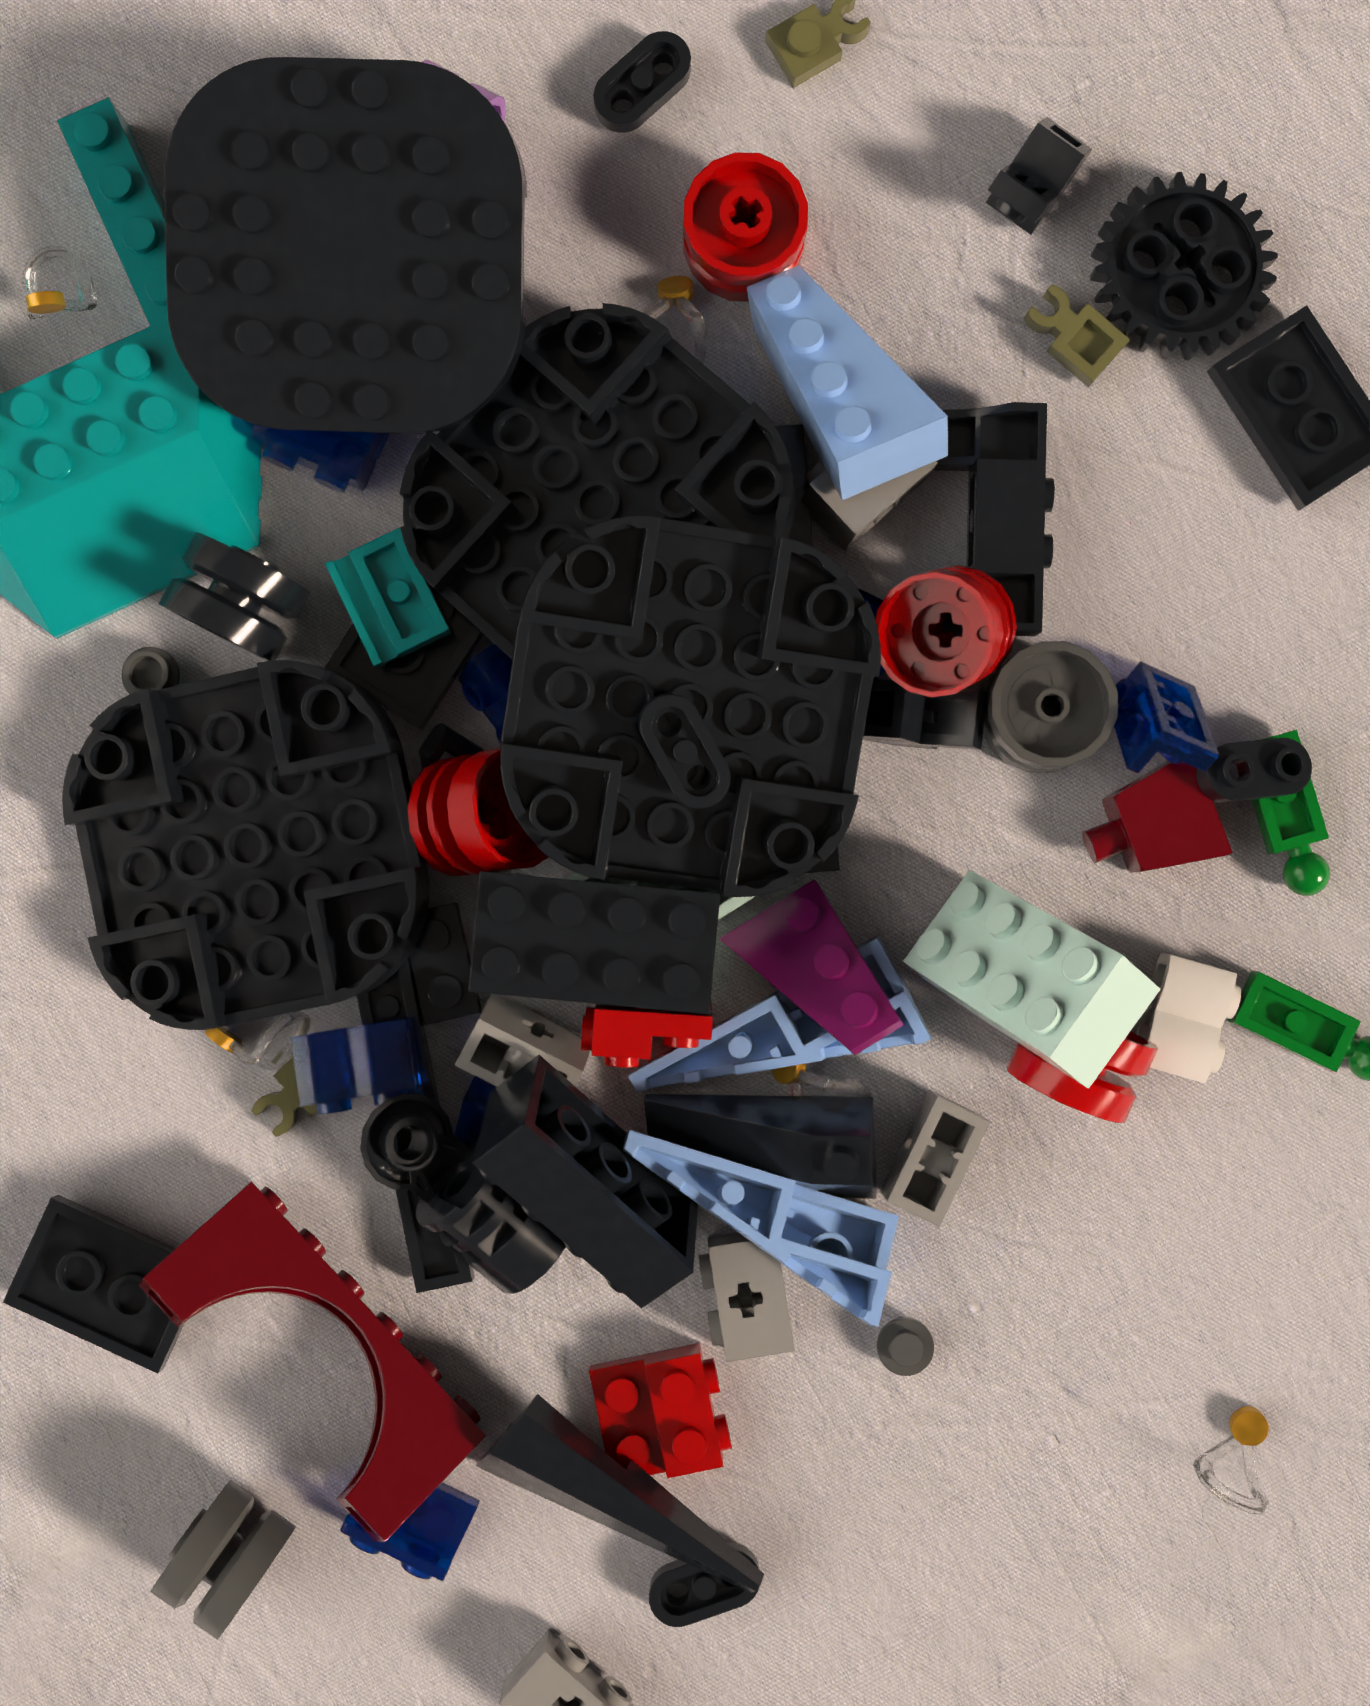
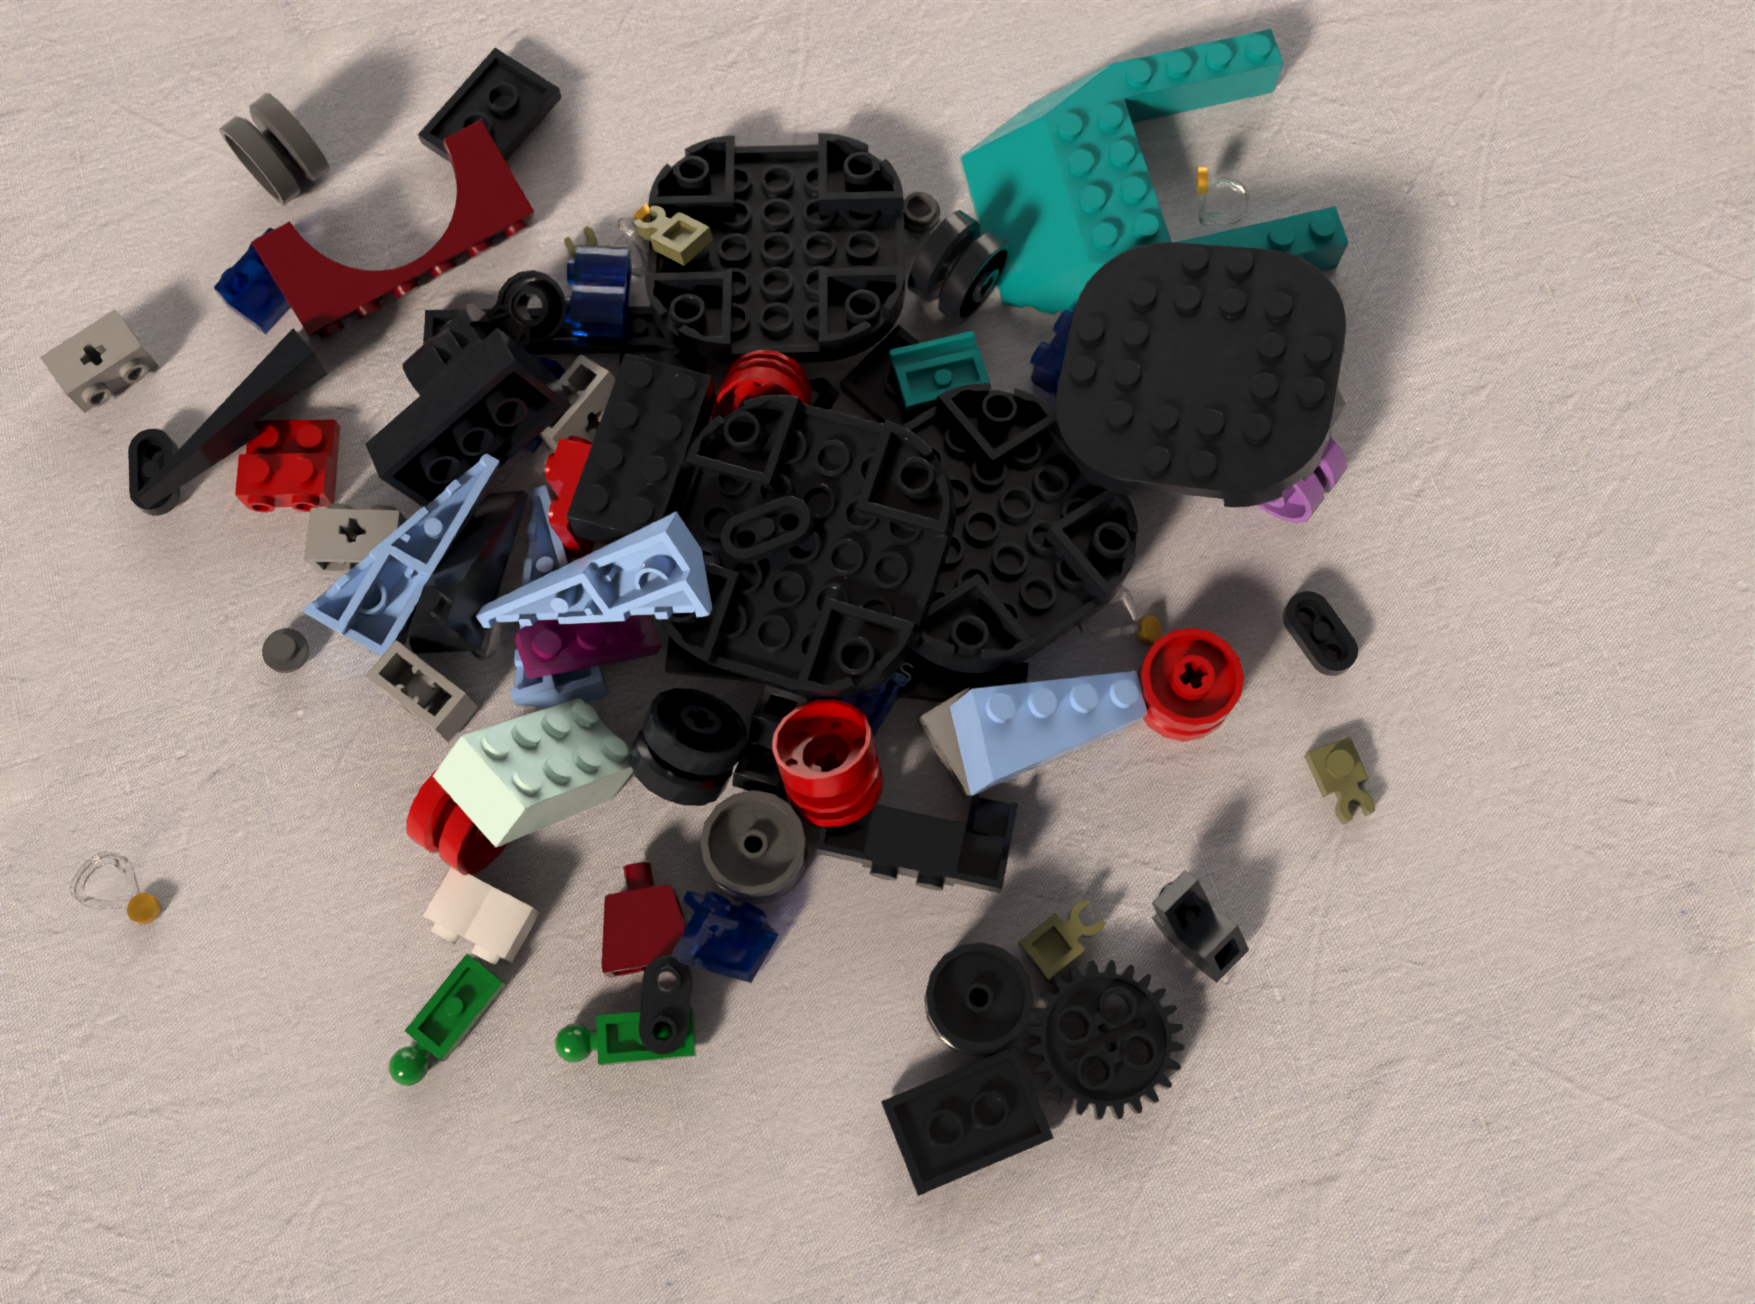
camera: 100 degrees right, 15 degrees down
(264, 976) = (676, 237): none -> olive plate
(764, 904) = (640, 574): none -> light blue wedge
(948, 808) = (688, 746): none -> black wheel
(1202, 395) = (972, 1028): none -> black wheel

